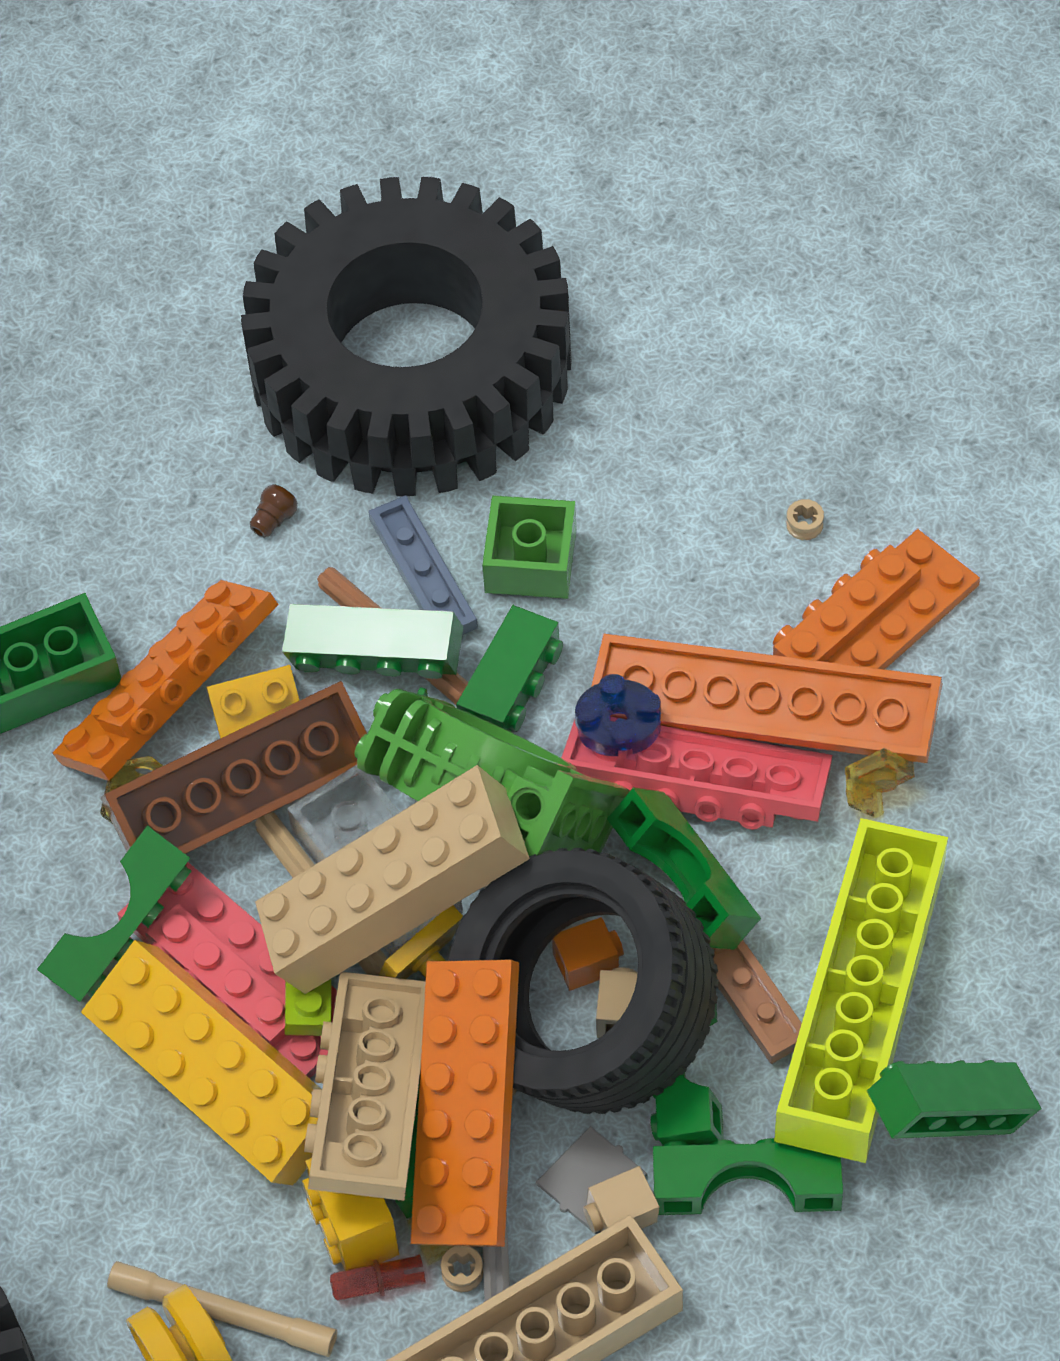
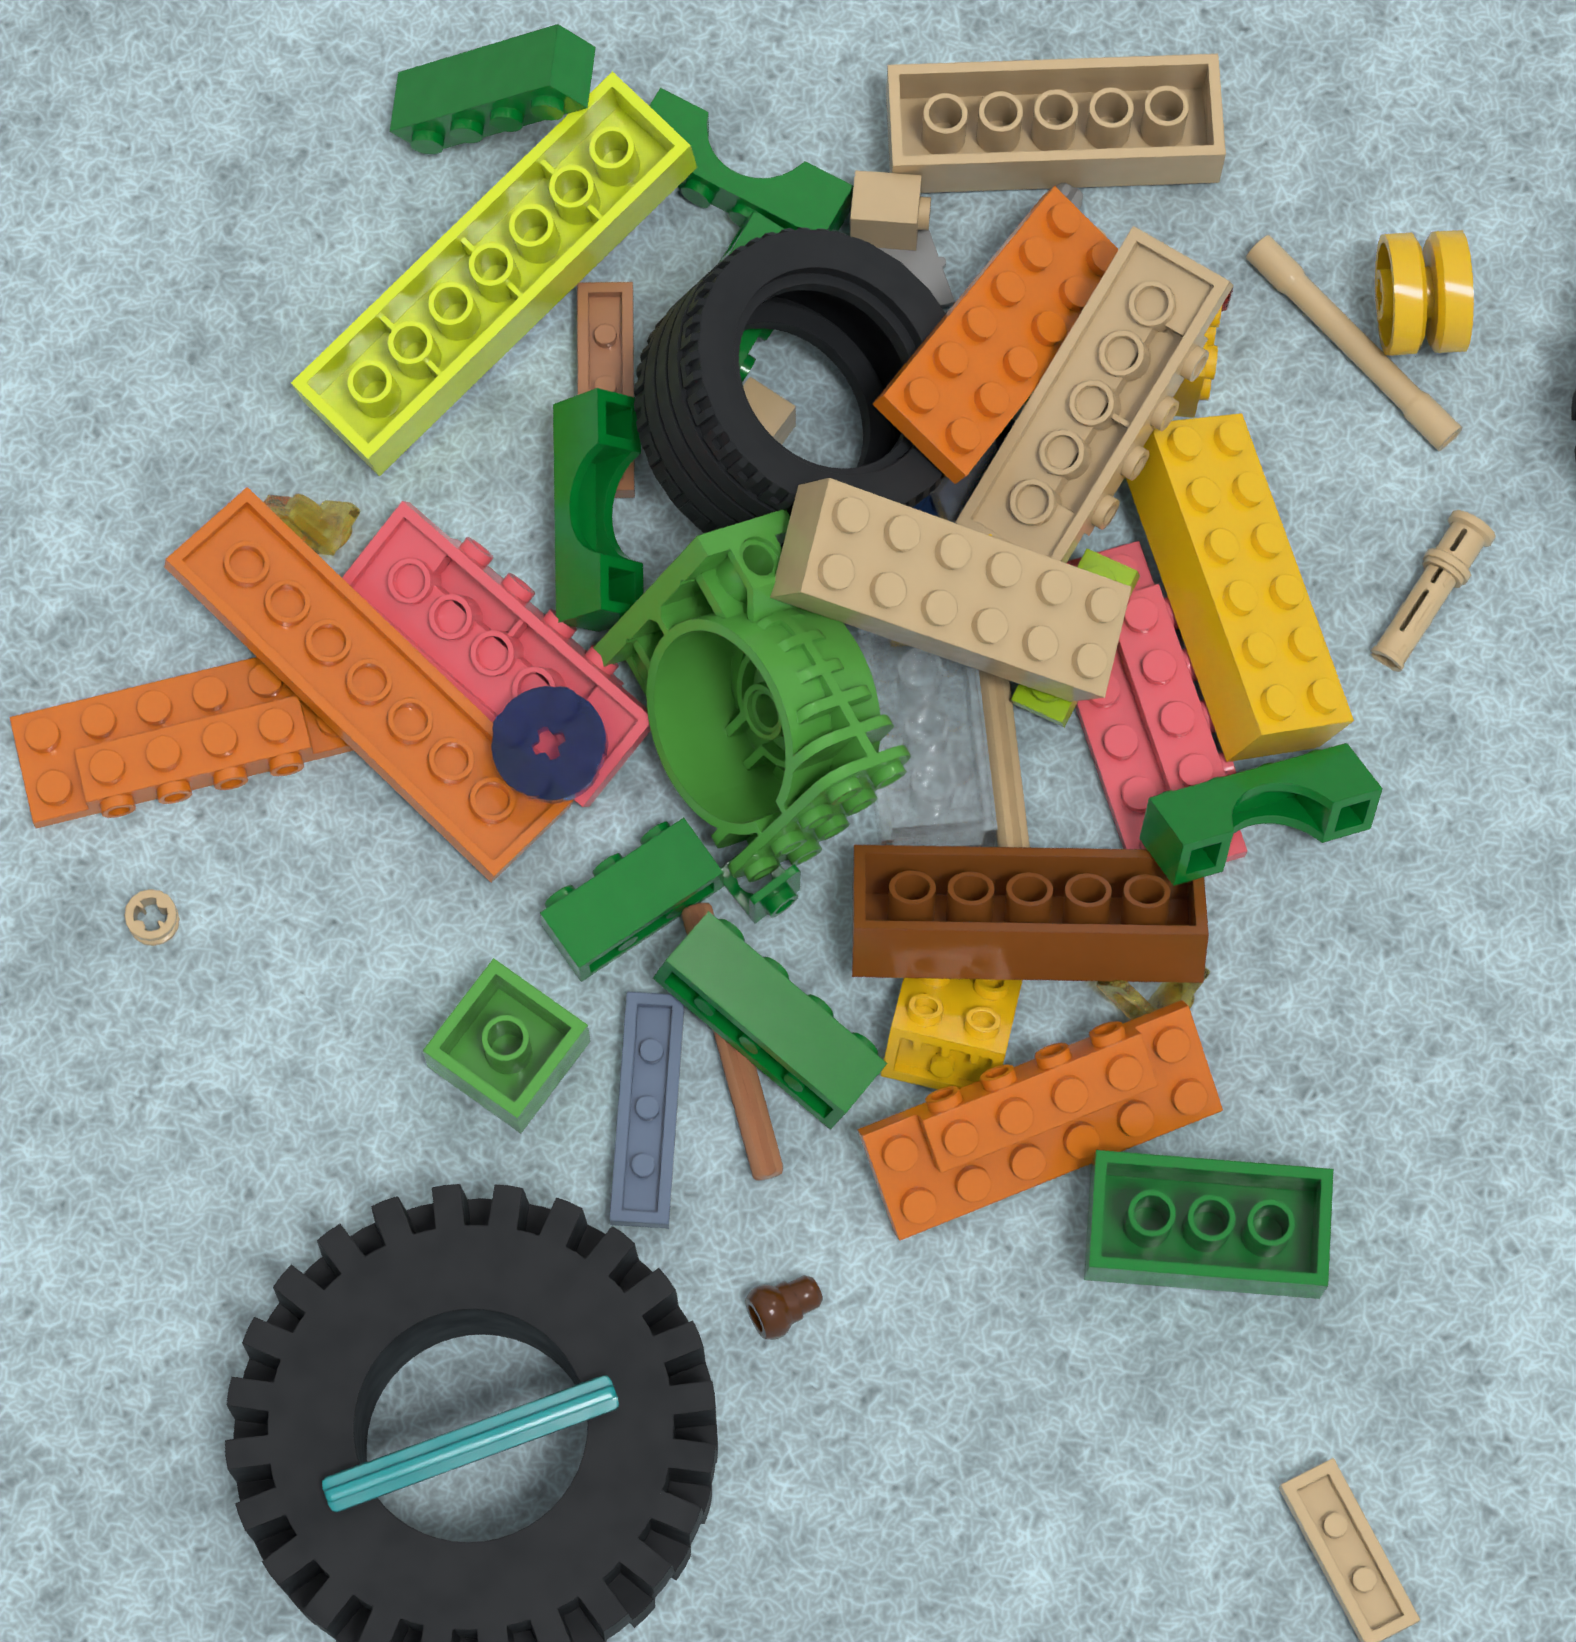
camera: 155 degrees left, 15 degrees up
(71, 1170) = (1445, 569): none -> tan pin
(395, 288) = (470, 1443): none -> teal axle

